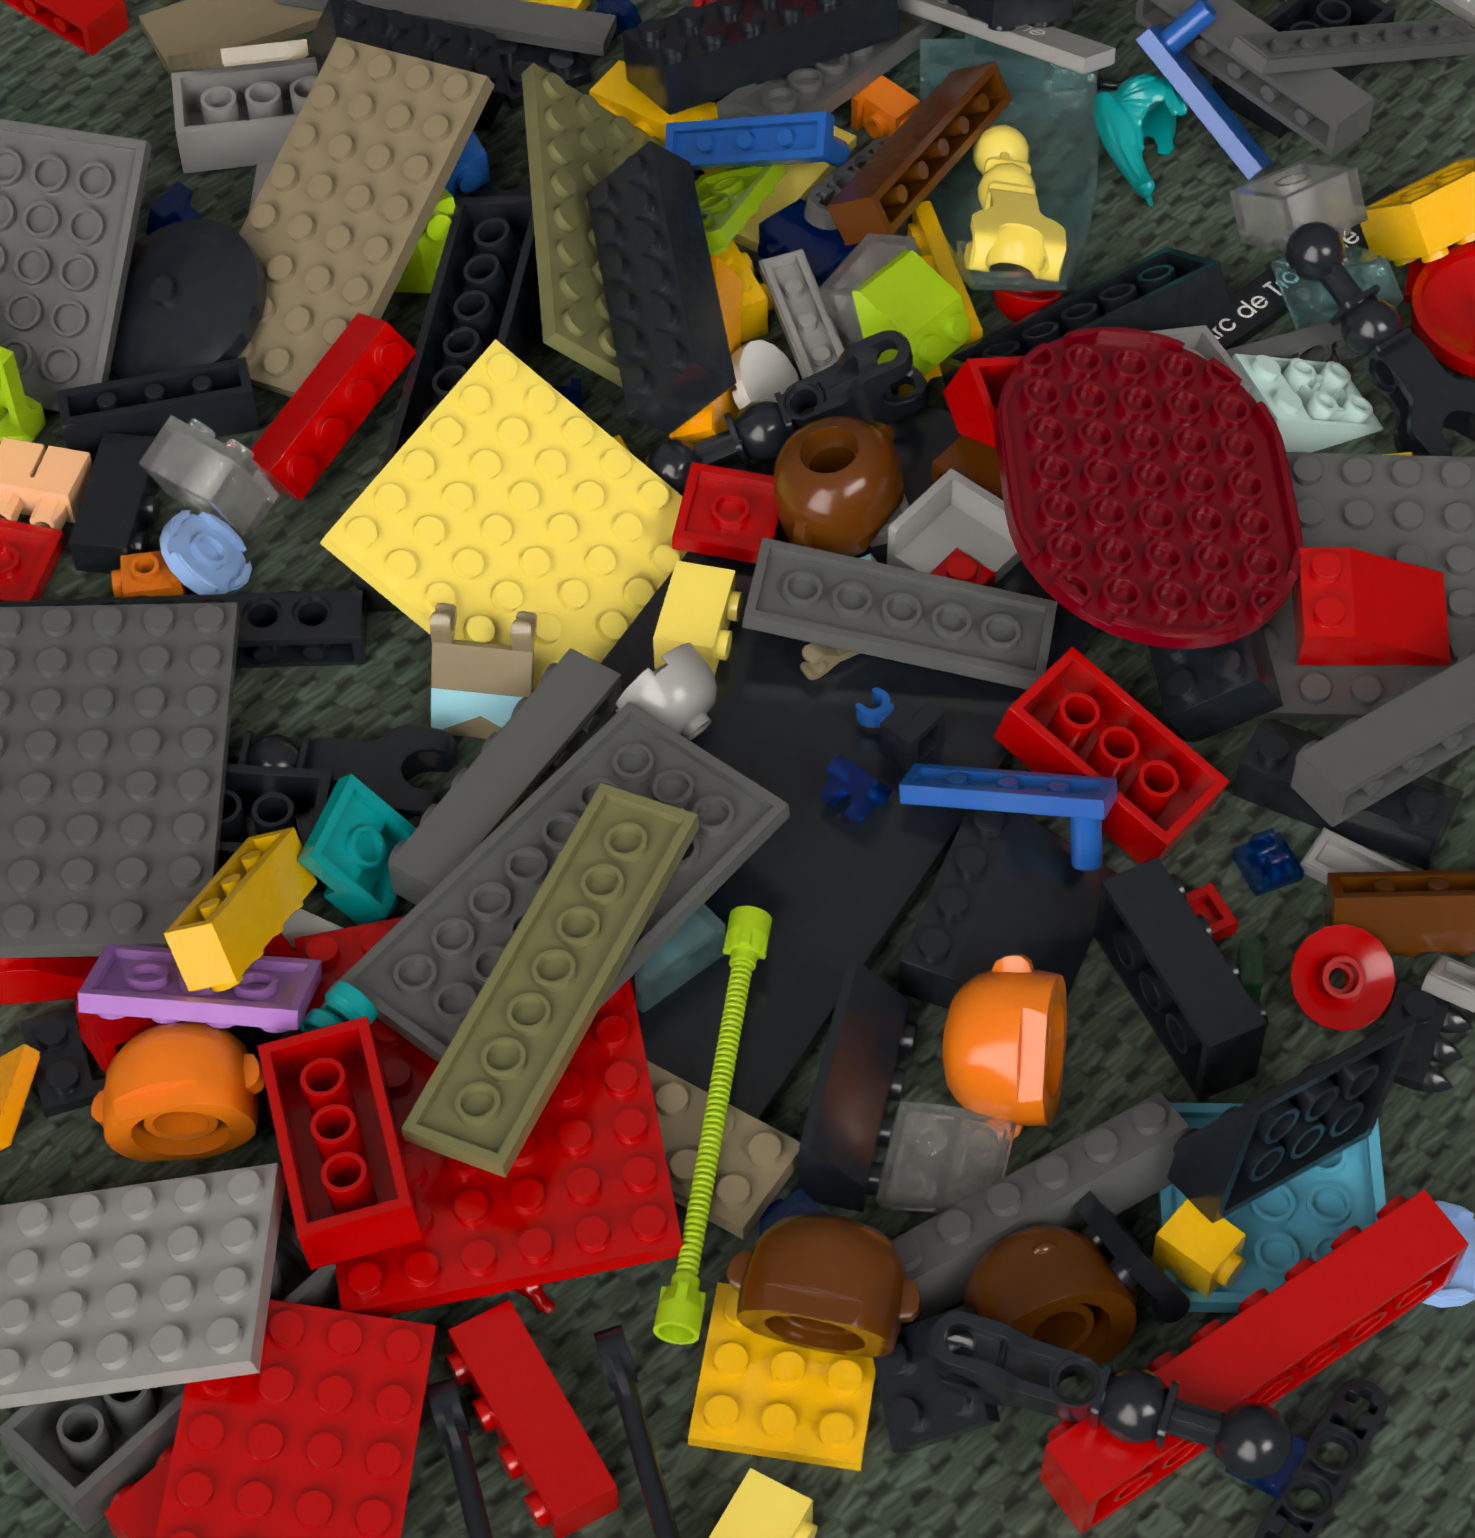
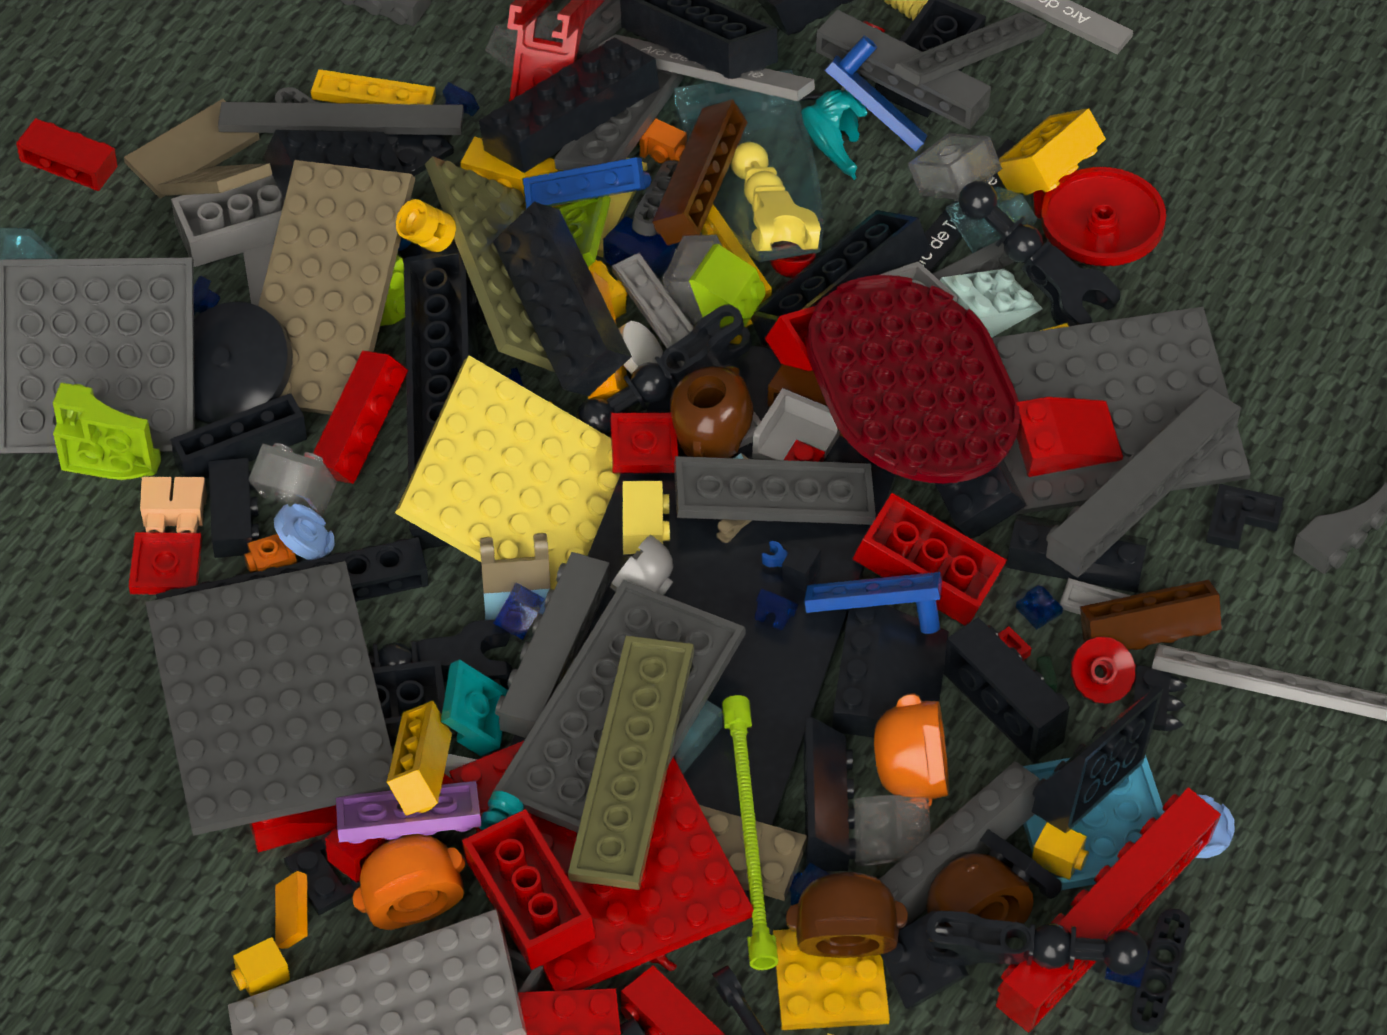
camera: 15 degrees left, 0 degrees up
(471, 720) = (519, 610): none -> clear blue brick
(492, 153) = (425, 225): none -> yellow wheel

